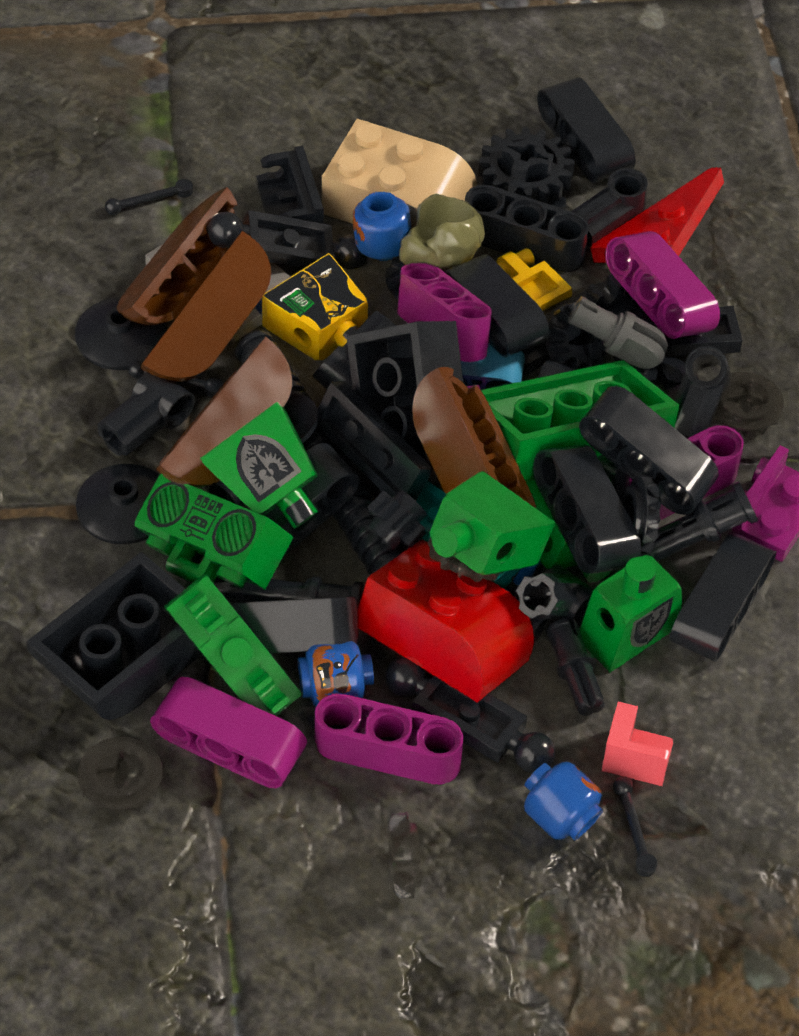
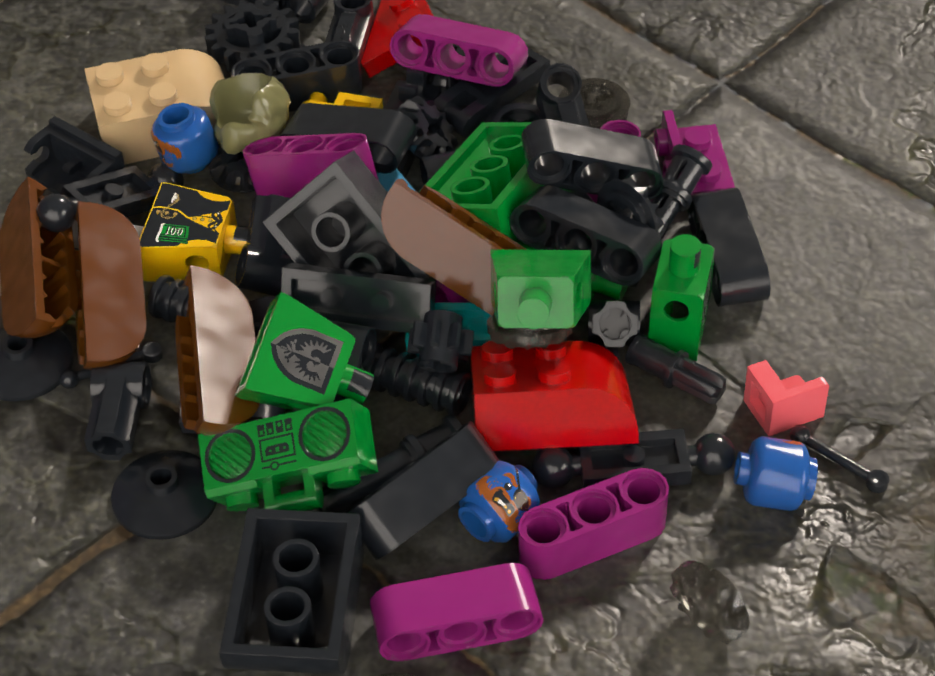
camera: 35 degrees left, 5 degrees down
(232, 647) = (403, 532): green plate -> none
(621, 334) = (466, 101): dark grey arm -> none

